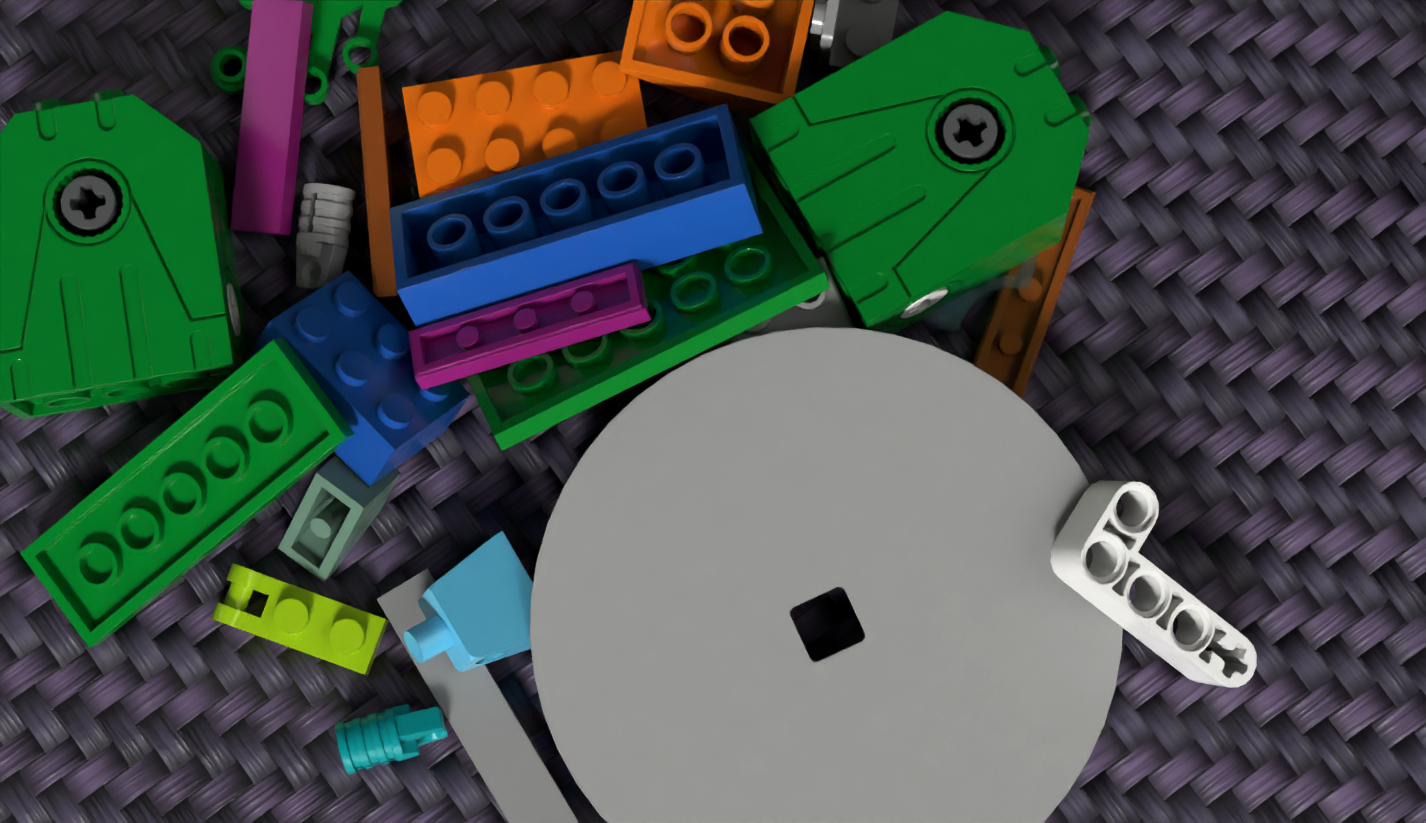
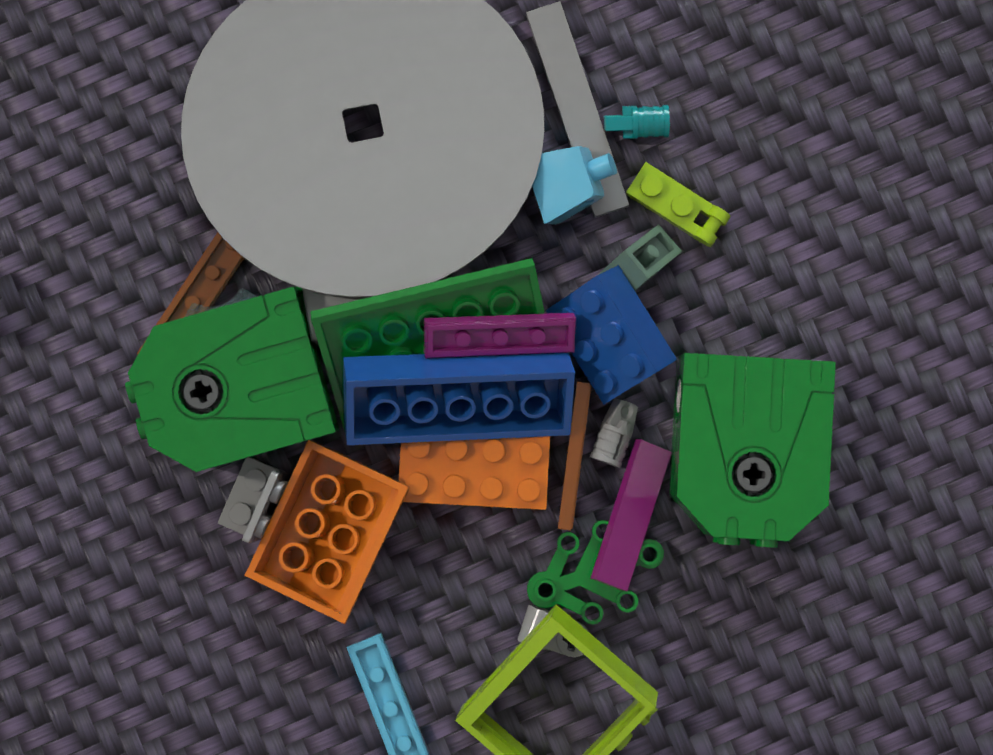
camera: 165 degrees left, 5 degrees up
(187, 492) = (727, 286): green plate -> none
(1157, 596) = (188, 117): white beam -> none

